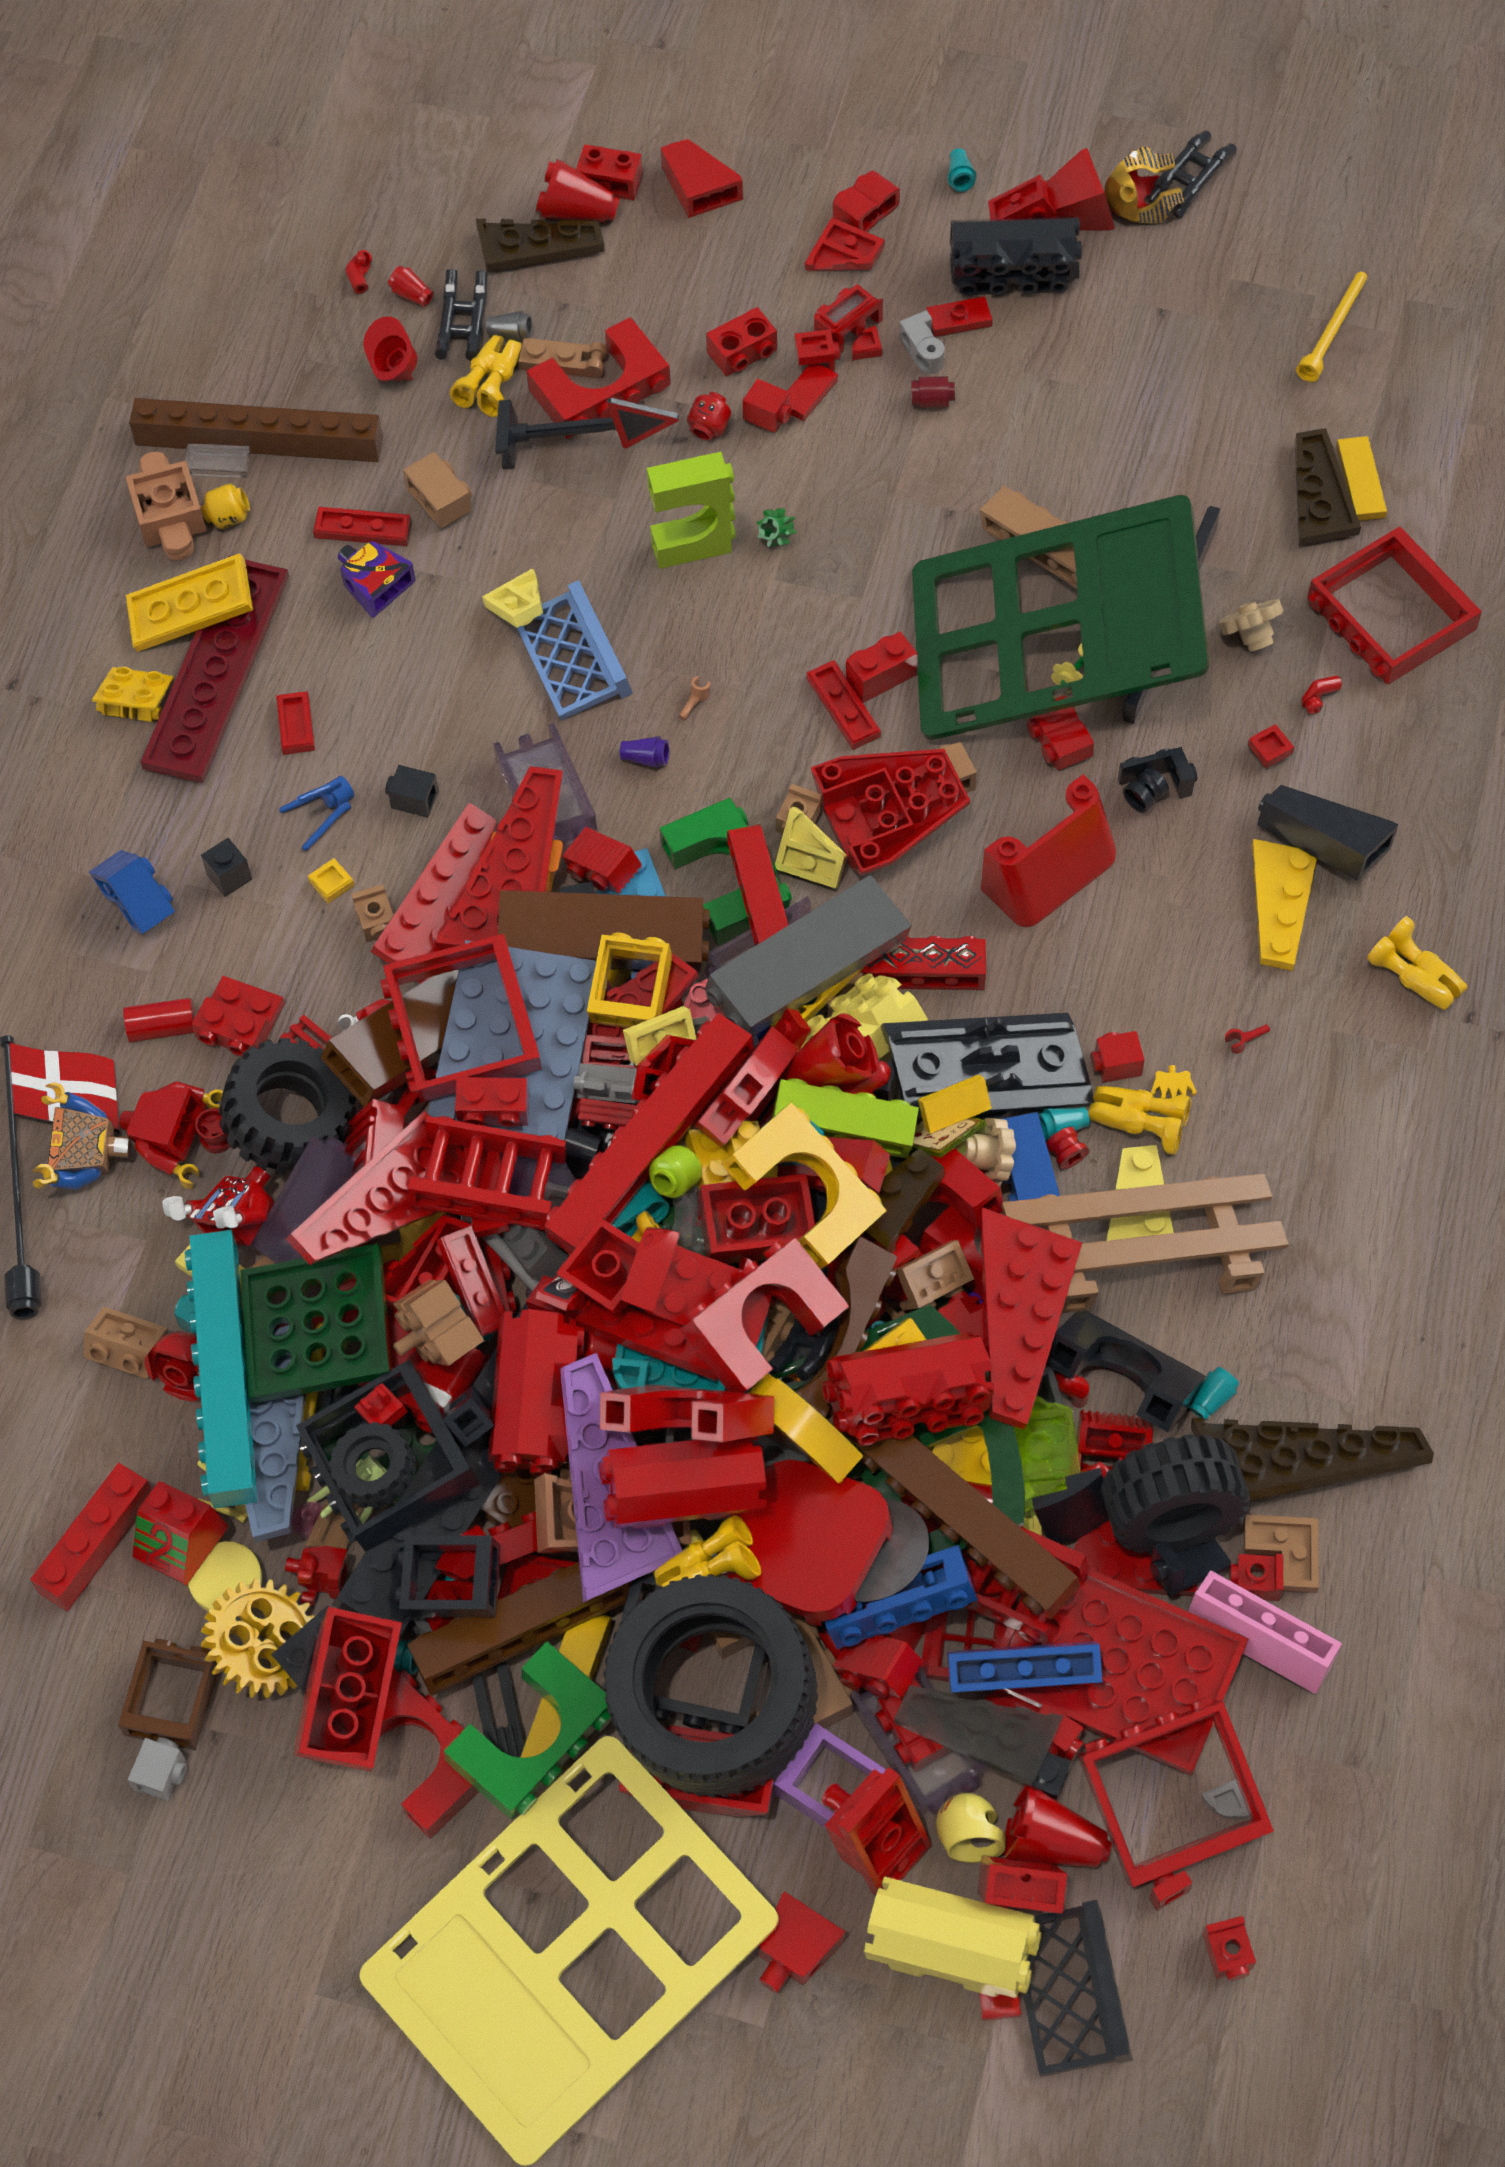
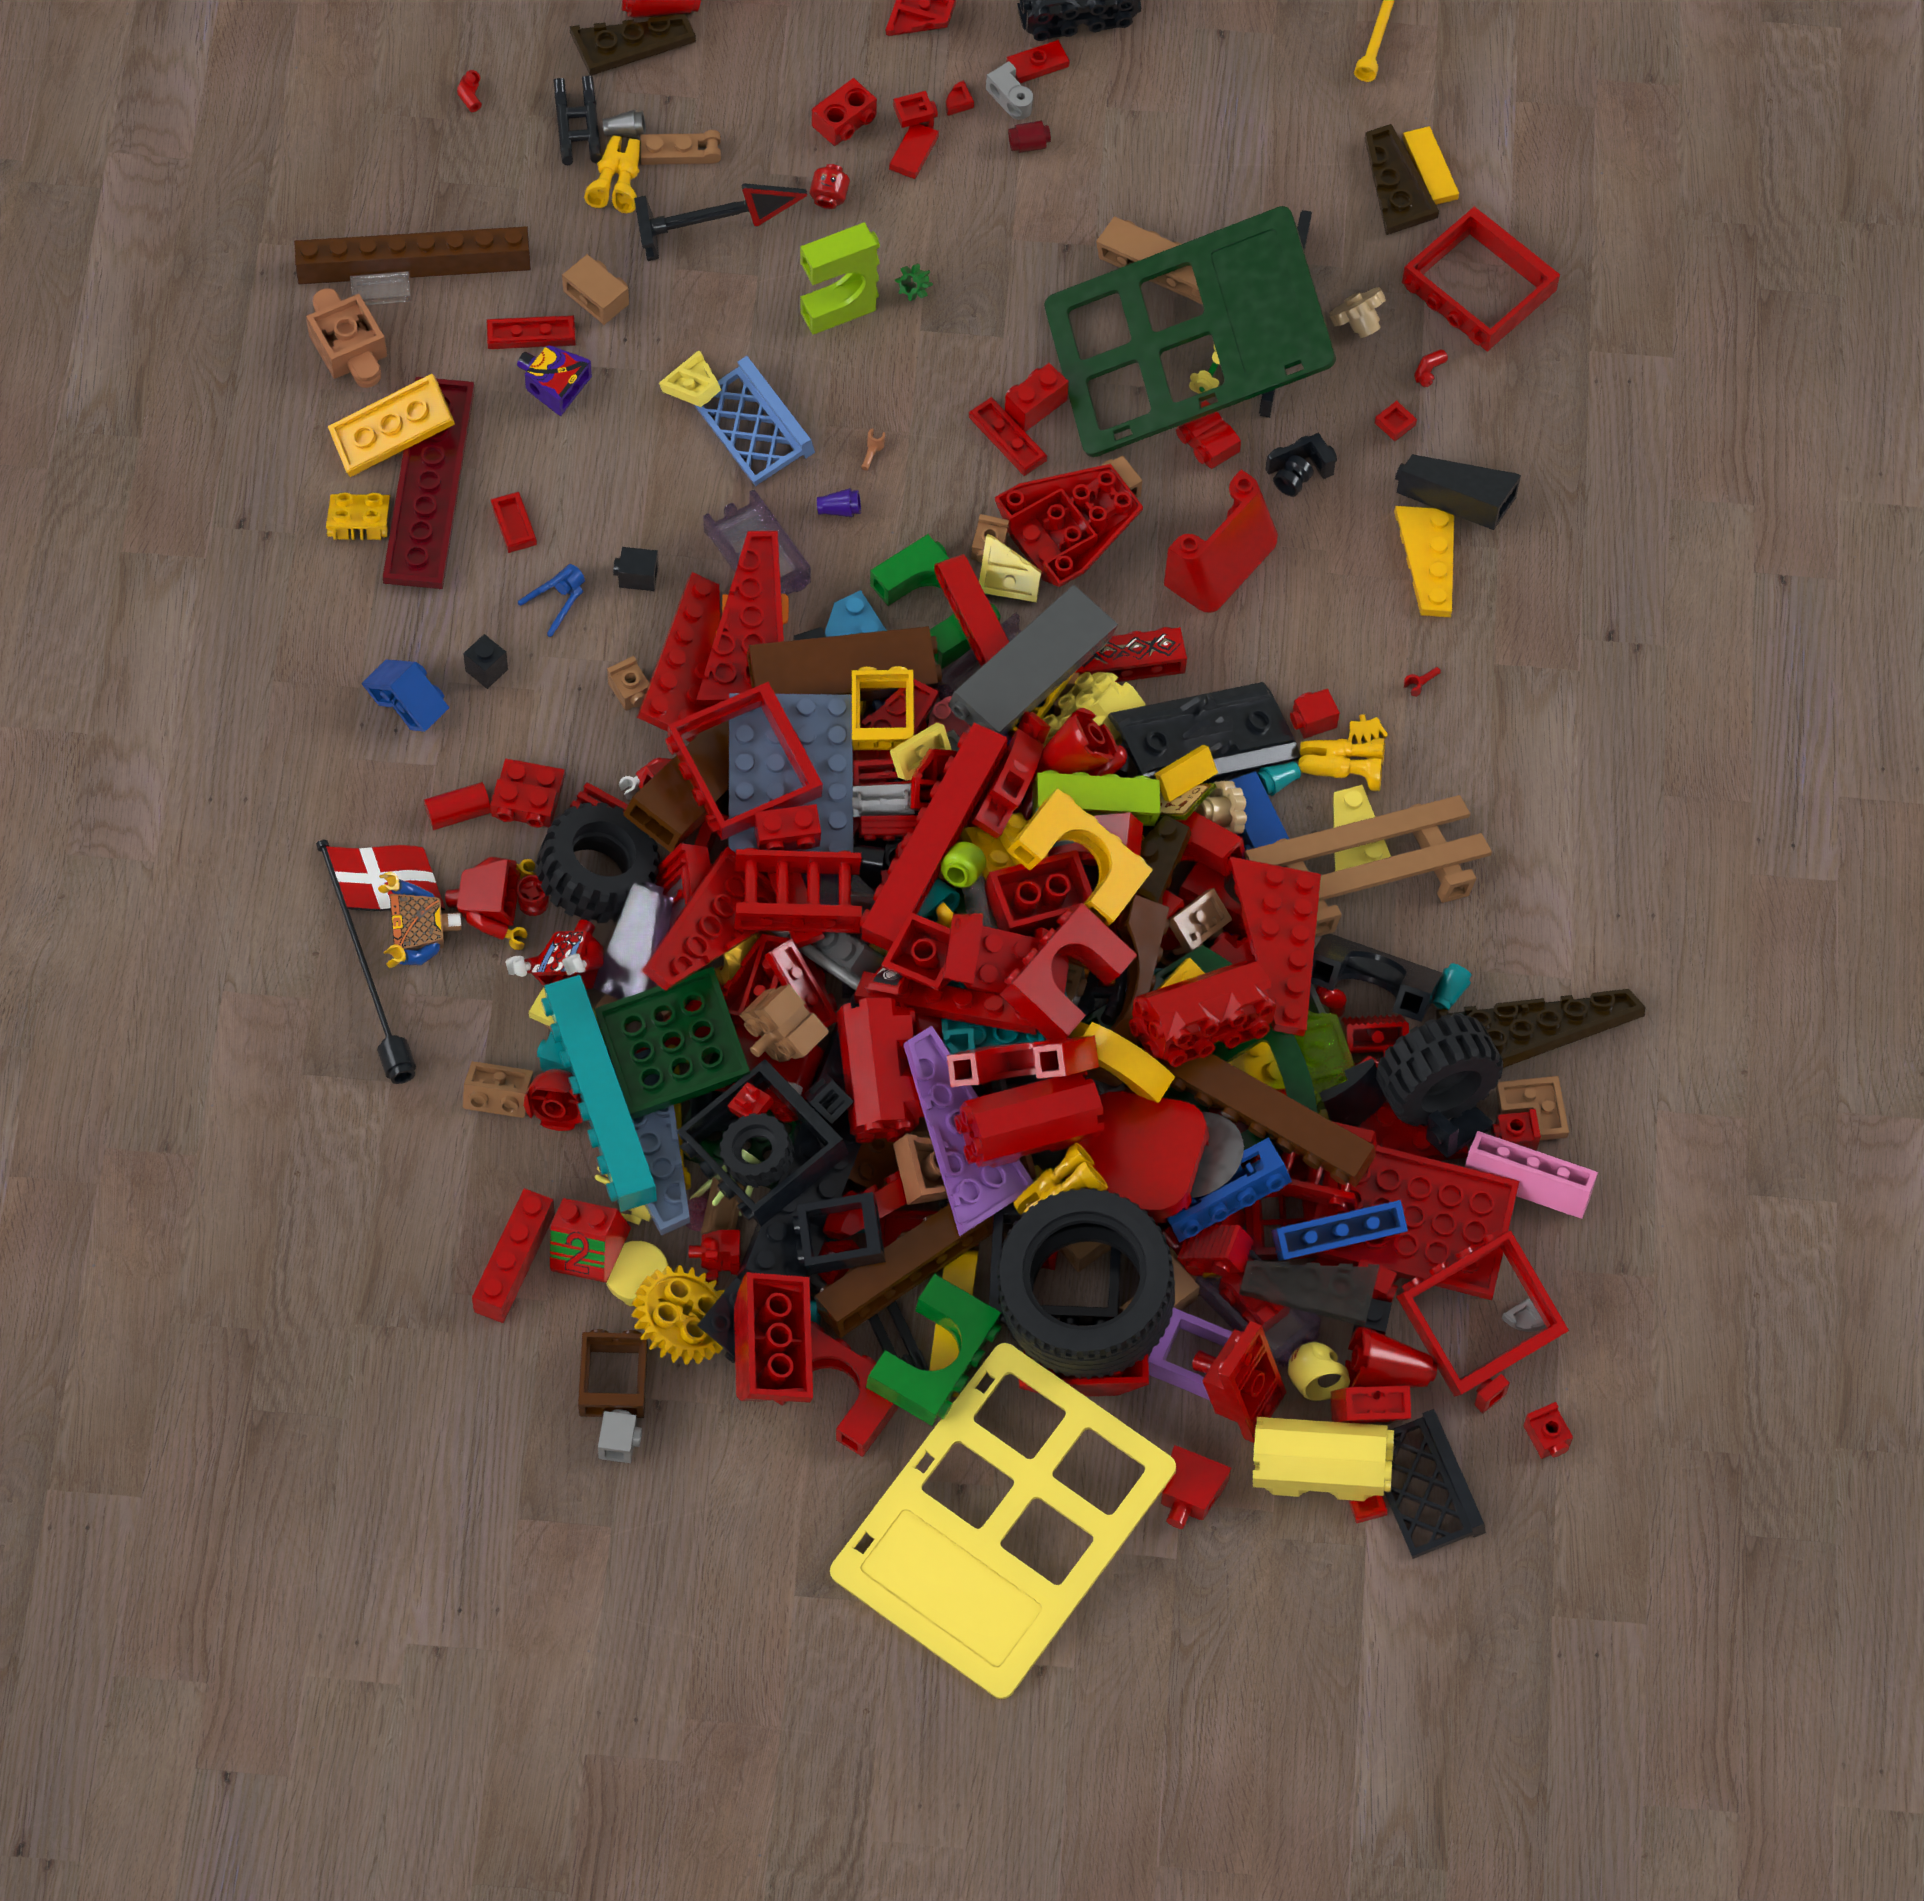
camera: 15 degrees left, 0 degrees up
(225, 506) = (402, 330): yellow head -> none
(331, 880) = (581, 660): yellow tile -> none
(390, 350) = (519, 162): red piece -> none
(410, 286) = (522, 99): red cone -> none
(601, 860) = (824, 607): red brick -> none
(643, 375) = (749, 138): red arch -> none
(766, 406) = (881, 170): red brick -> none
(848, 313) = (937, 72): red window -> none
(1067, 1148) = (1286, 798): red wheel -> none
(1427, 974) = (1567, 603): yellow piece -> none

